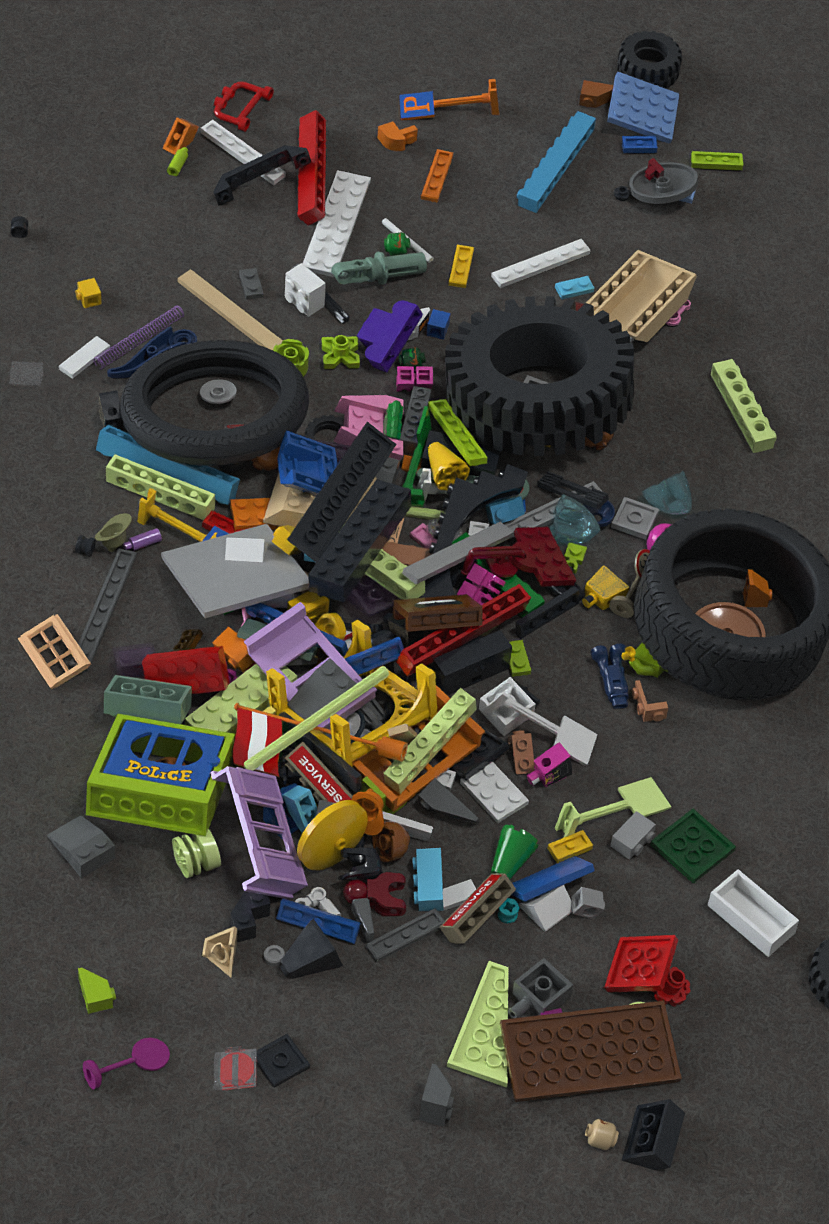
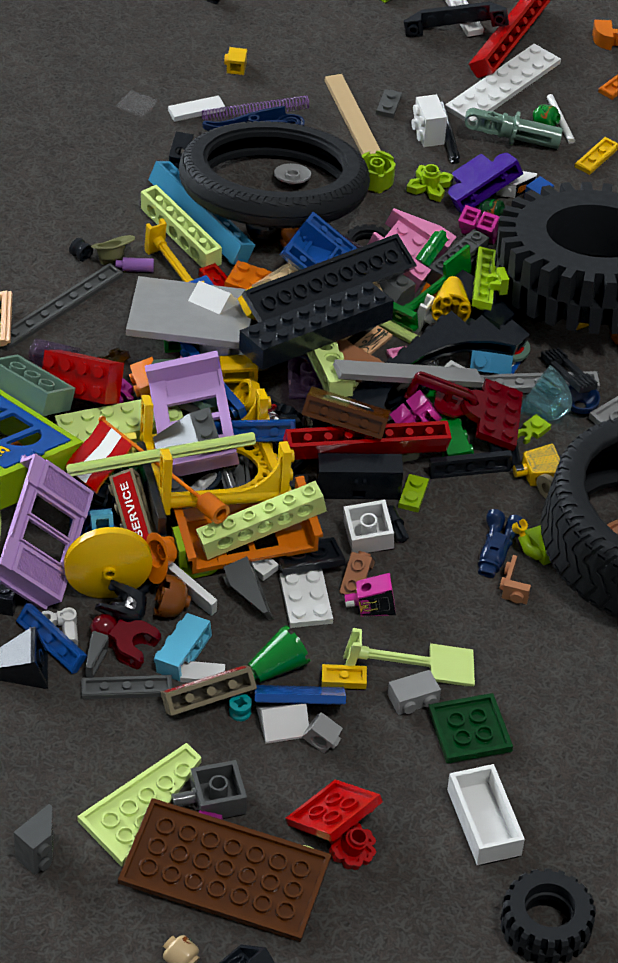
camera: 30 degrees right, 5 degrees down
(402, 733) = (231, 498): tan tile -> none
(478, 431) = (499, 281): none -> lime tile
(573, 736) = (413, 581): white piece -> none

